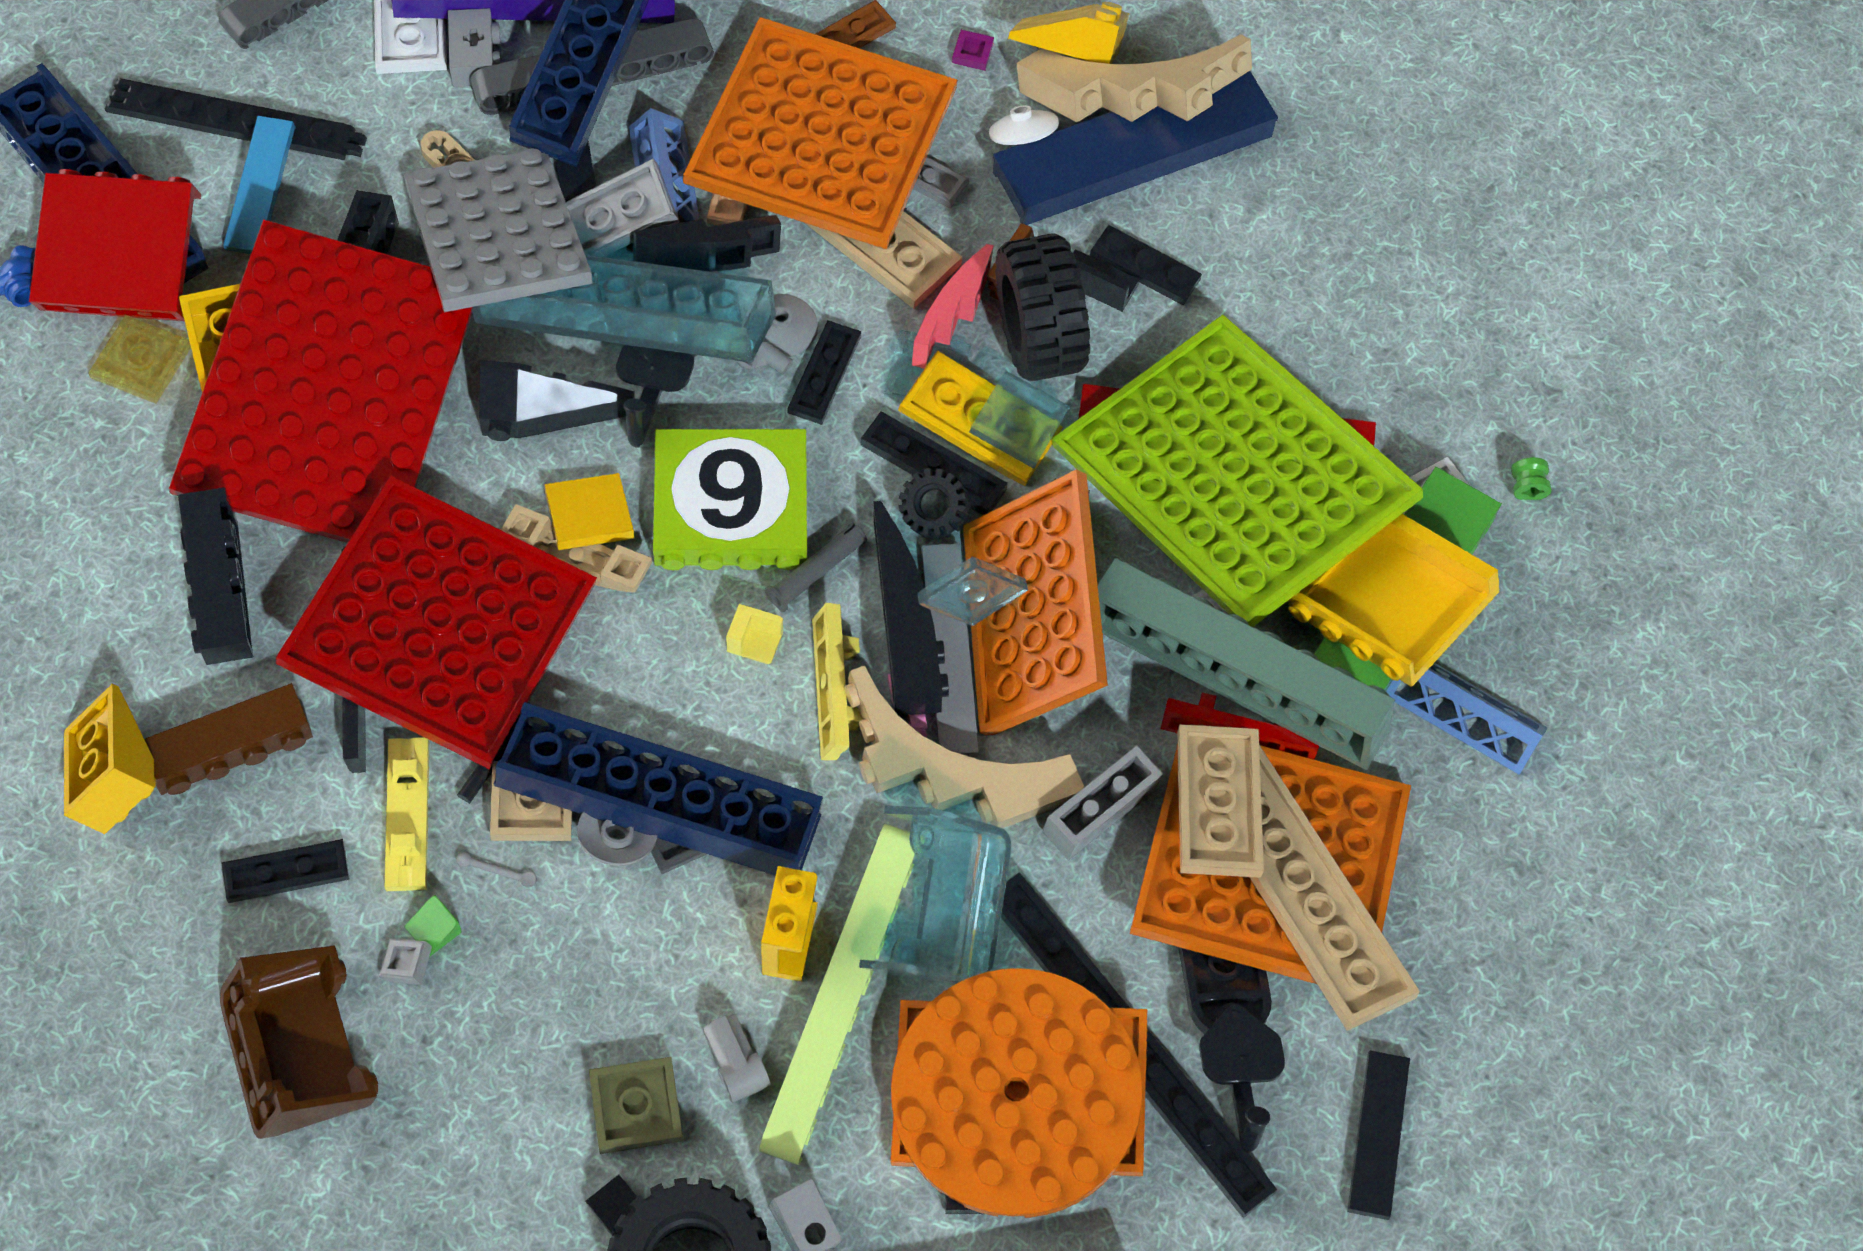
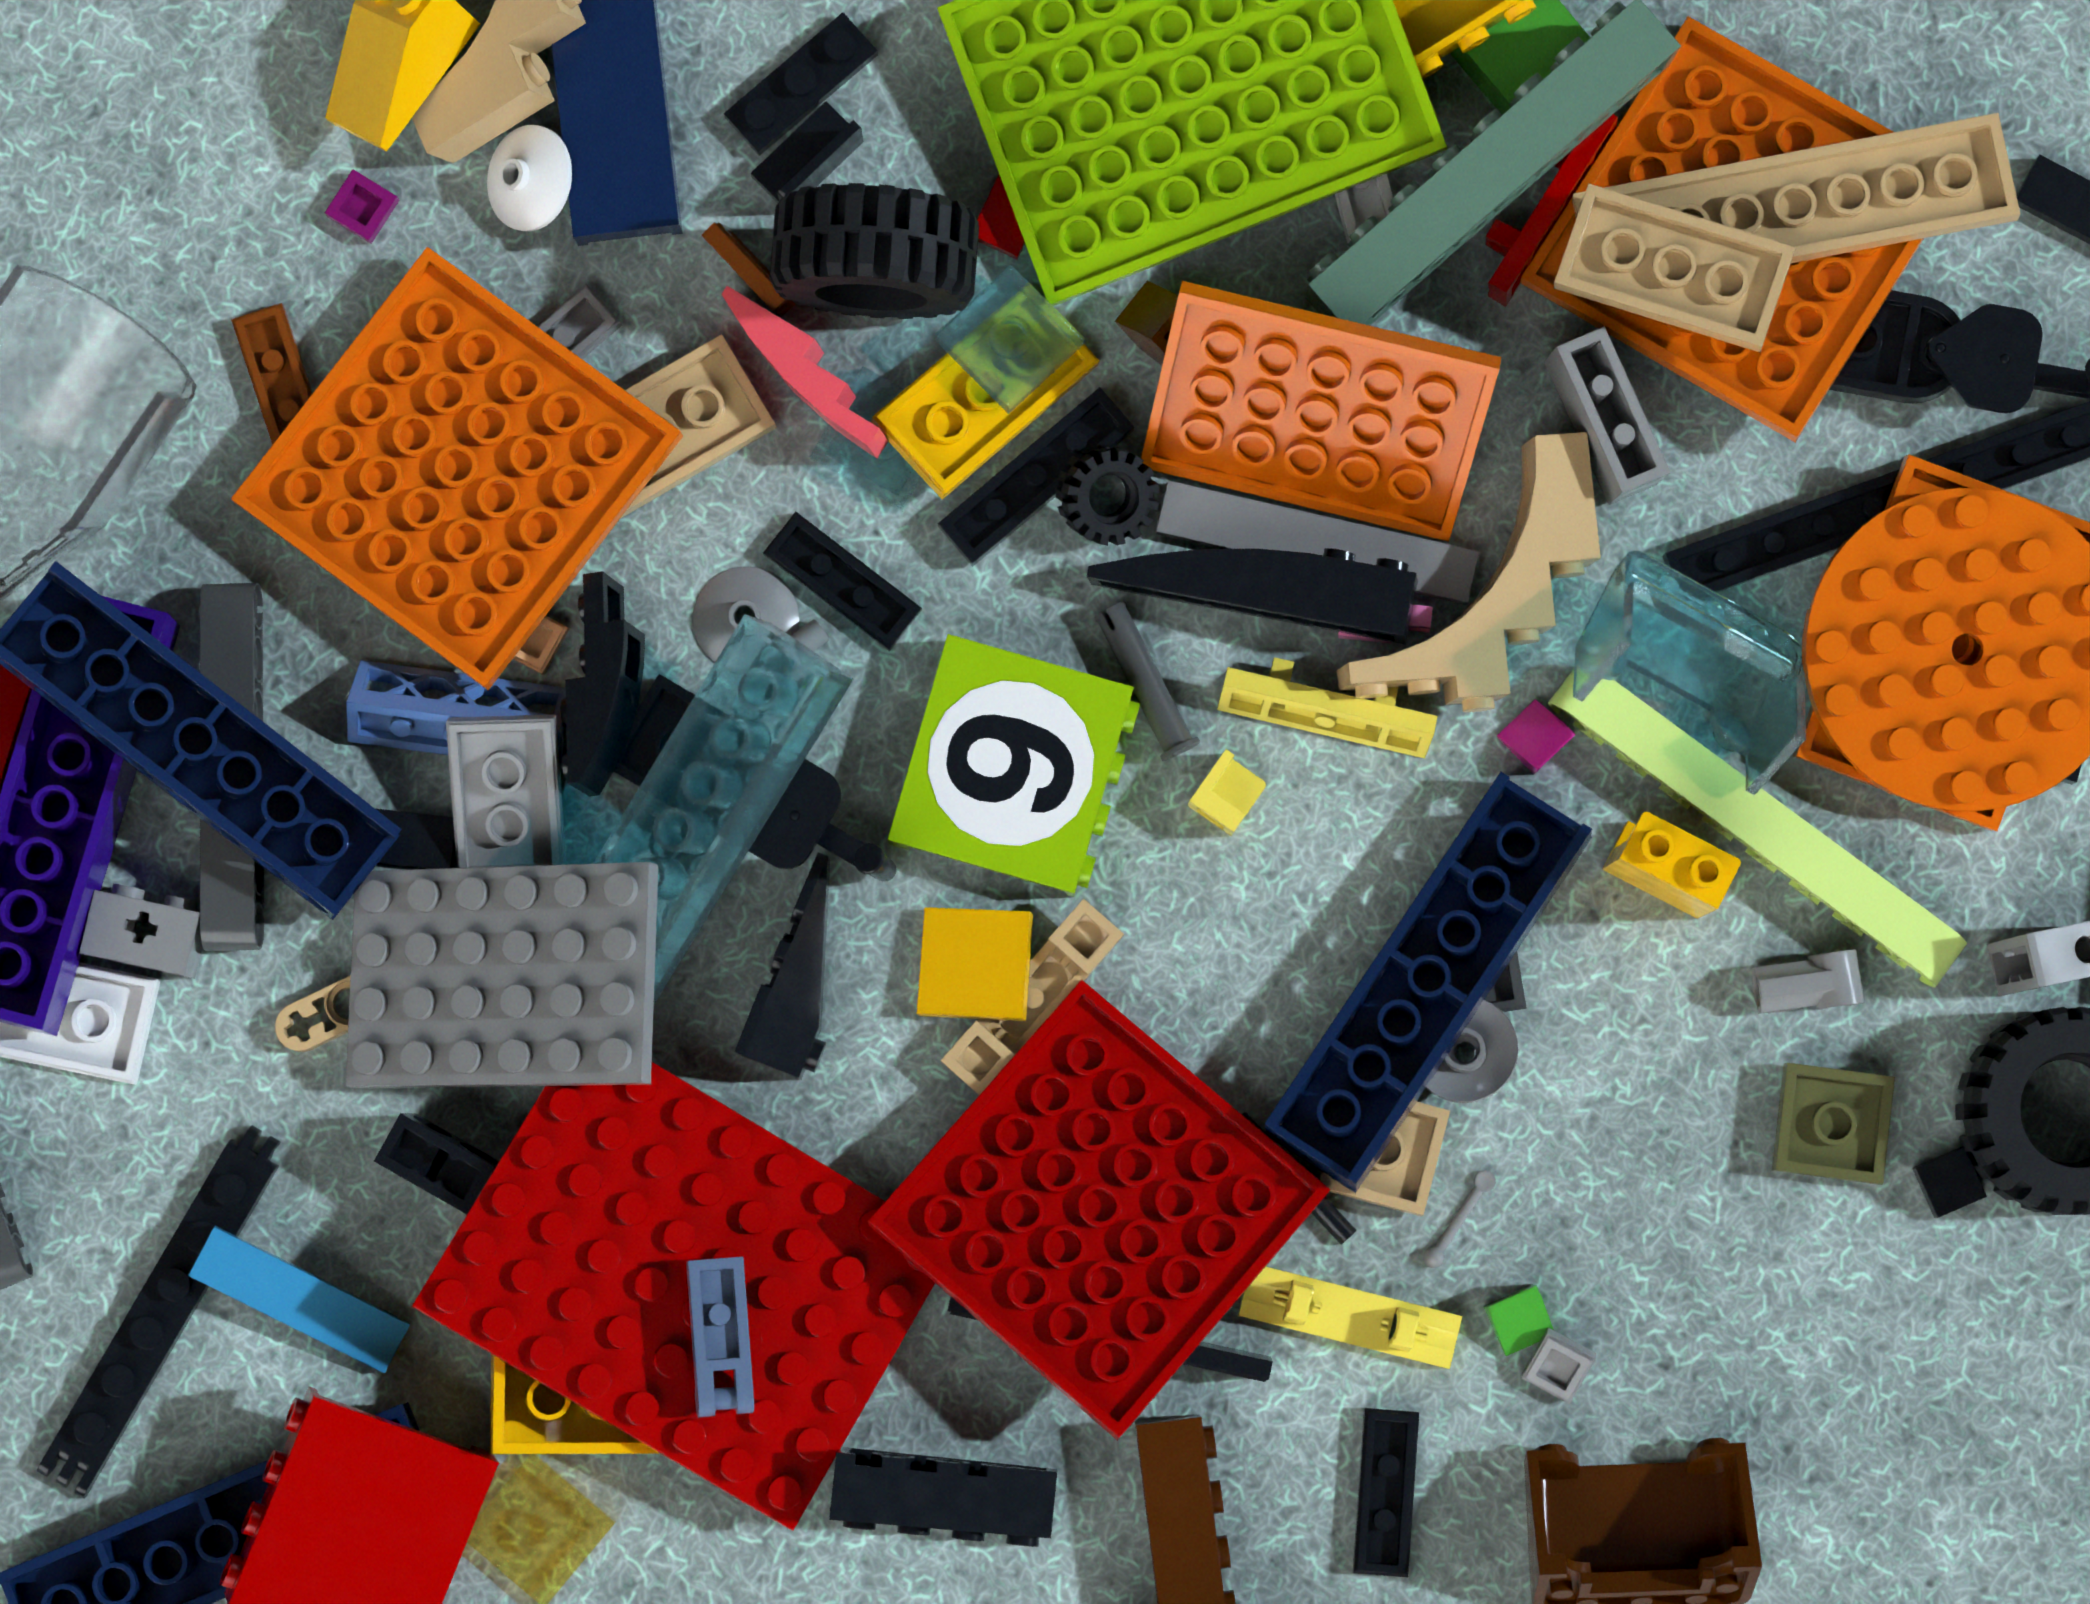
camera: 70 degrees left, 20 degrees up
(288, 402) = (720, 1334): none -> sand blue plate
(858, 827) = (1535, 736): none -> dark pink slope
(972, 591) = (1280, 487): clear light blue tile -> none

